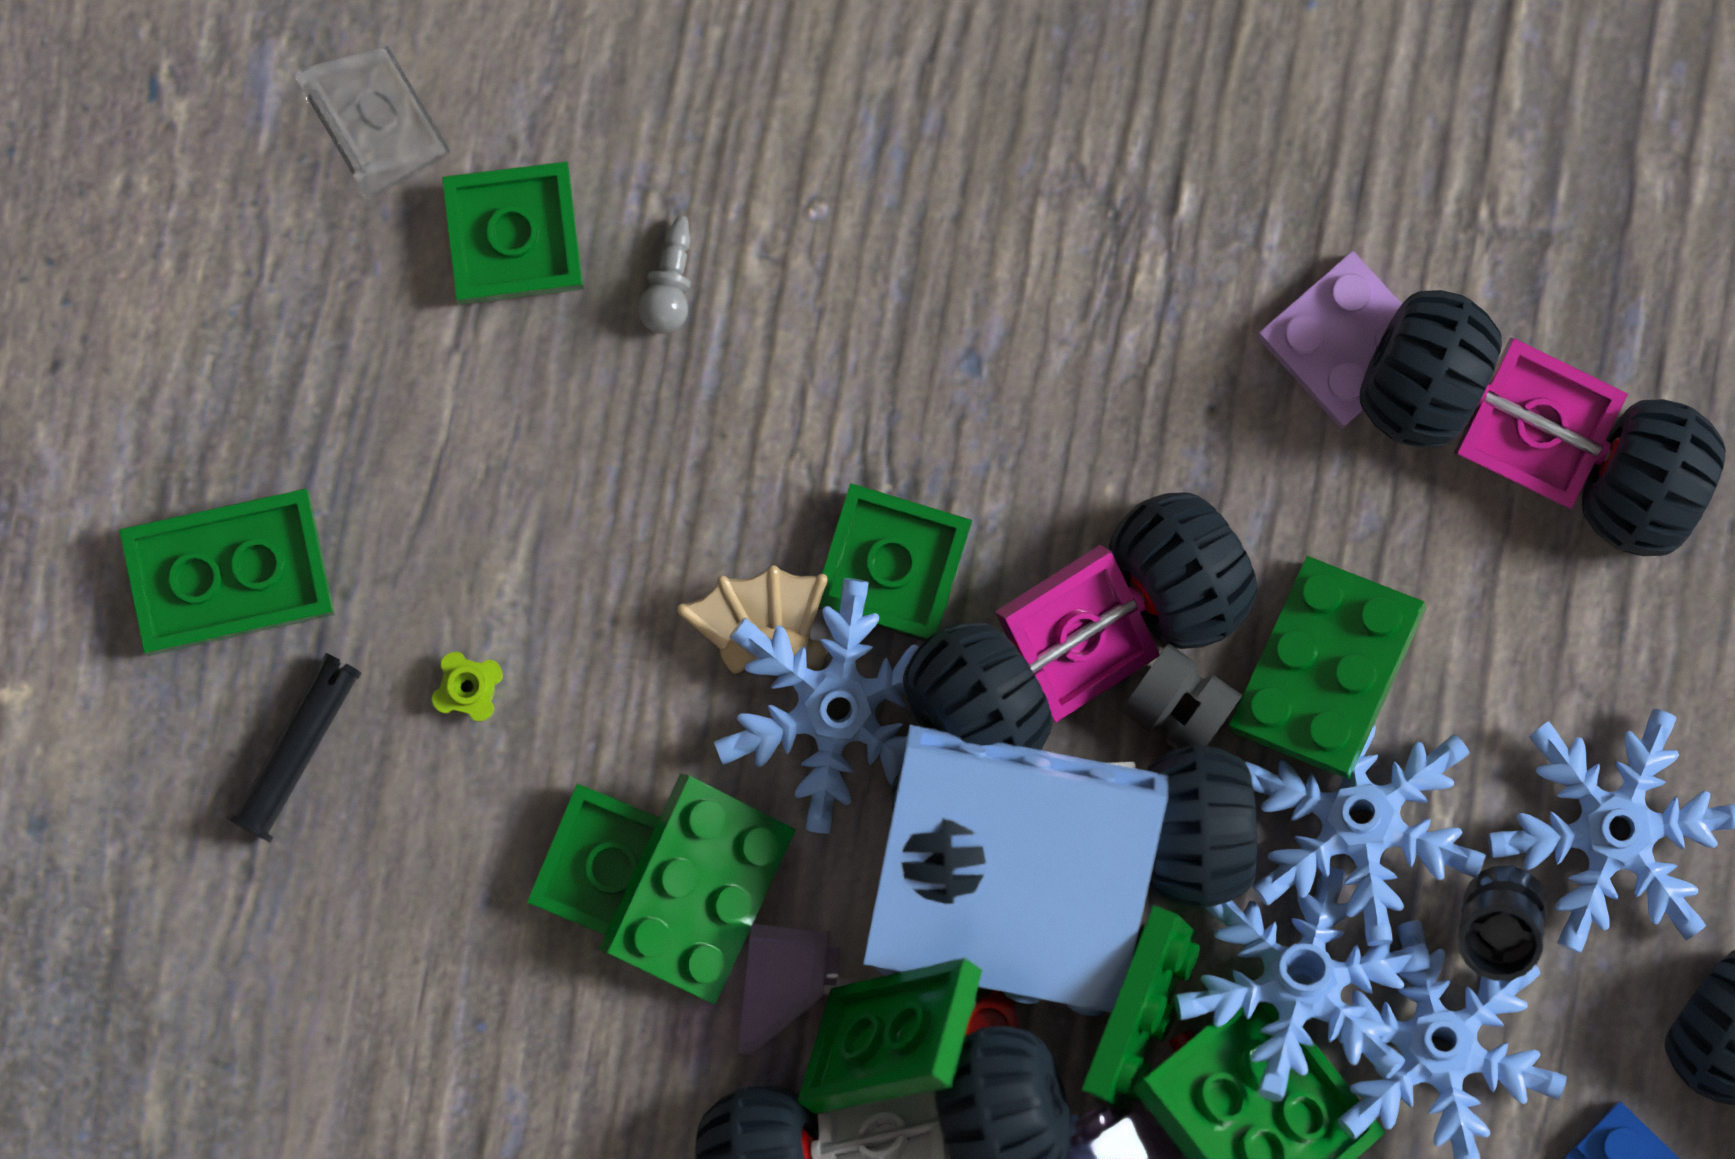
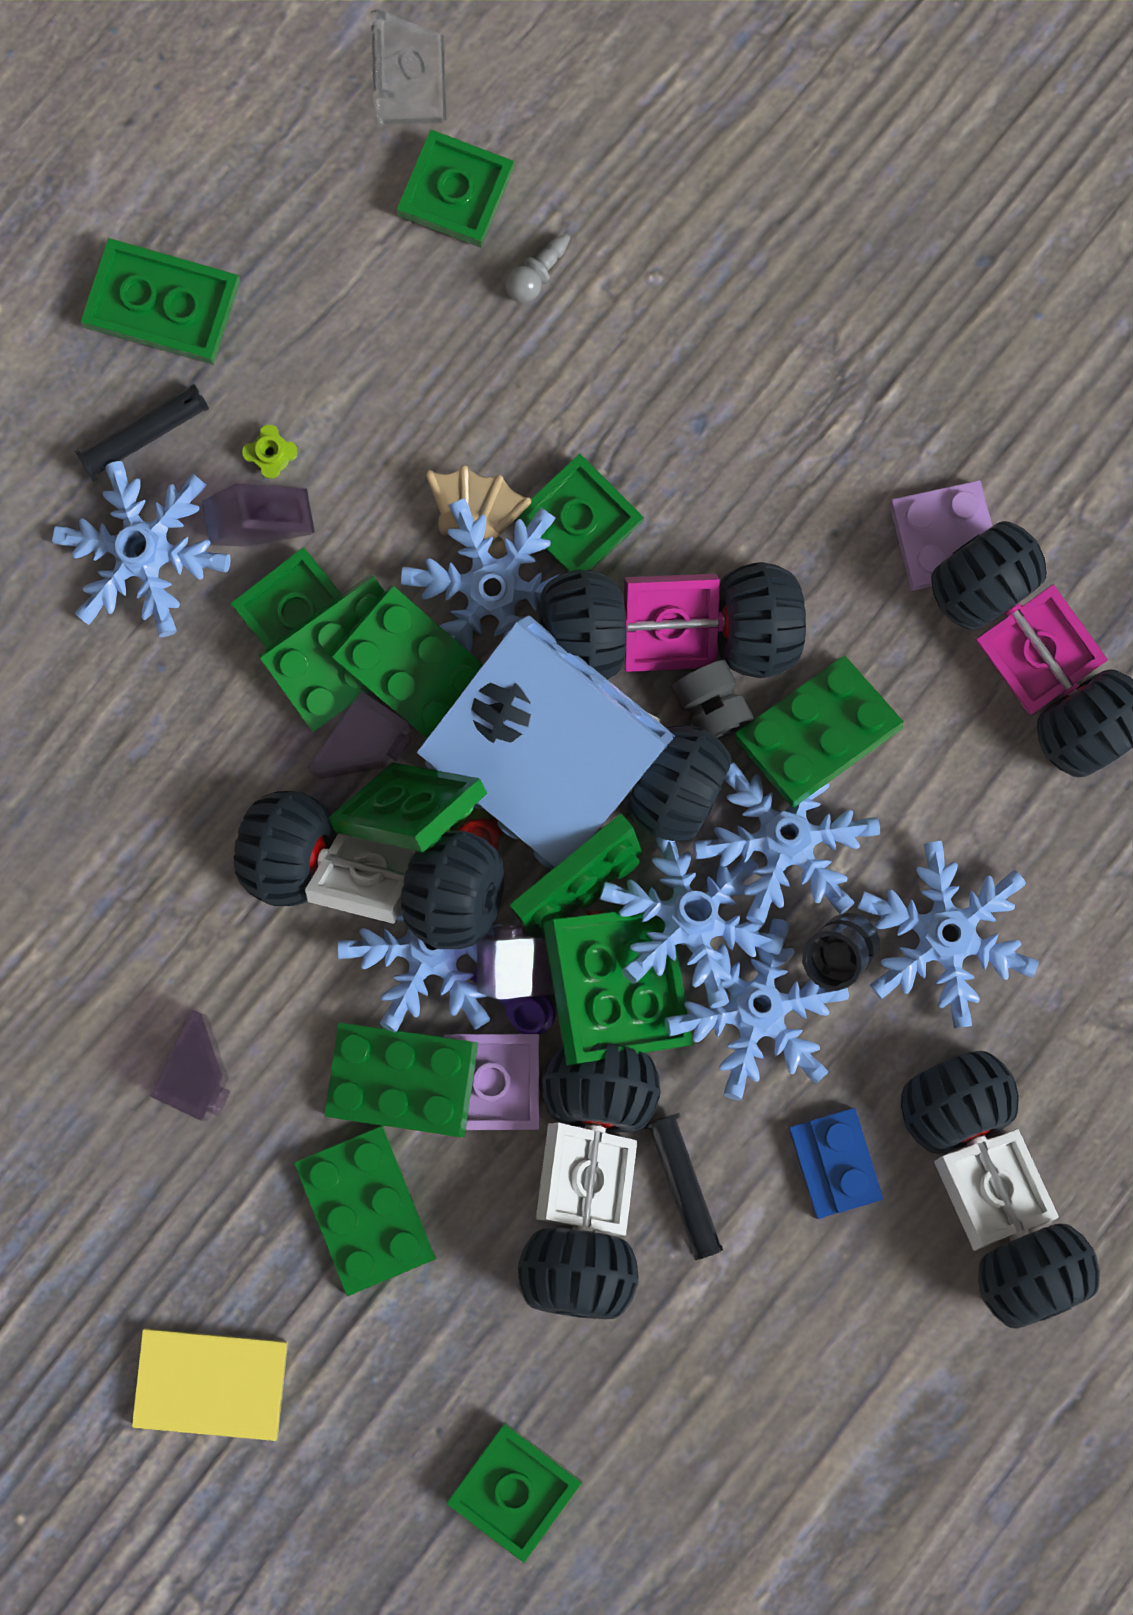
camera: 25 degrees right, 0 degrees up
(356, 901) = (131, 539): none -> light blue piece
(497, 775) = (257, 515): none -> clear purple slope
(791, 856) = (407, 660): none -> green plate

